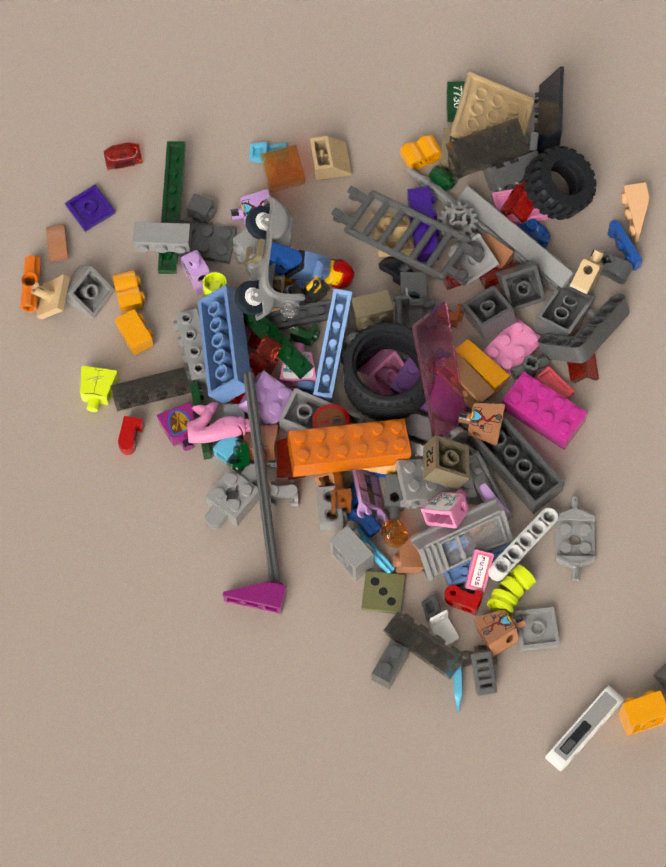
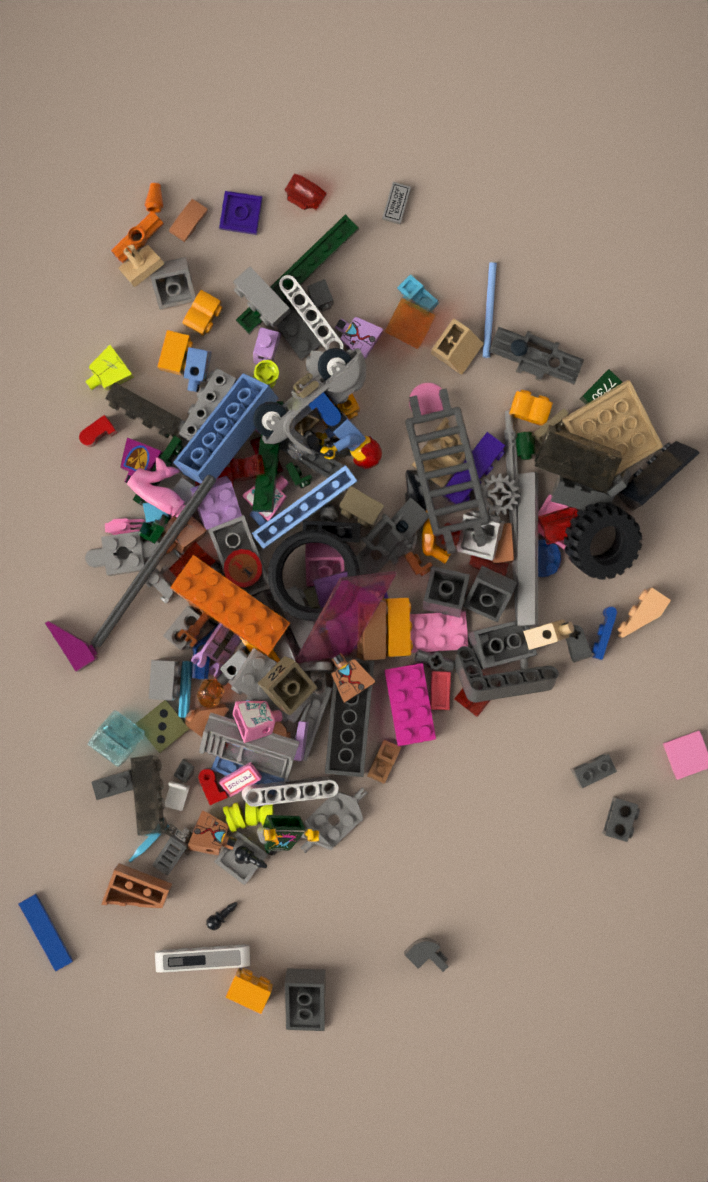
camera: 40 degrees right, 20 degrees up
(18, 249) = (154, 198): none -> orange cone
(157, 321) = (201, 360): none -> medium blue torso
(194, 110) = (396, 203): none -> light grey tile
(200, 216) = (309, 305): none -> white beam
(210, 481) = (122, 526): none -> bright pink piece
(338, 131) = (489, 309): none -> light blue piece
(347, 206) = (428, 398): none -> bright pink piece
(358, 628) = (116, 738): none -> clear light blue slope
(390, 121) = (515, 348): none -> dark grey piece
(442, 294) = (429, 544): none -> light orange arm
(448, 825) = (45, 932): none -> blue tile
(483, 722) = (136, 889): none -> nougat wedge
(535, 622) = (243, 854): none -> black bar
(548, 577) = (283, 832): none -> torso
(566, 693) = (214, 921): none -> black bar
(567, 468) = (383, 761): none -> medium nougat slope

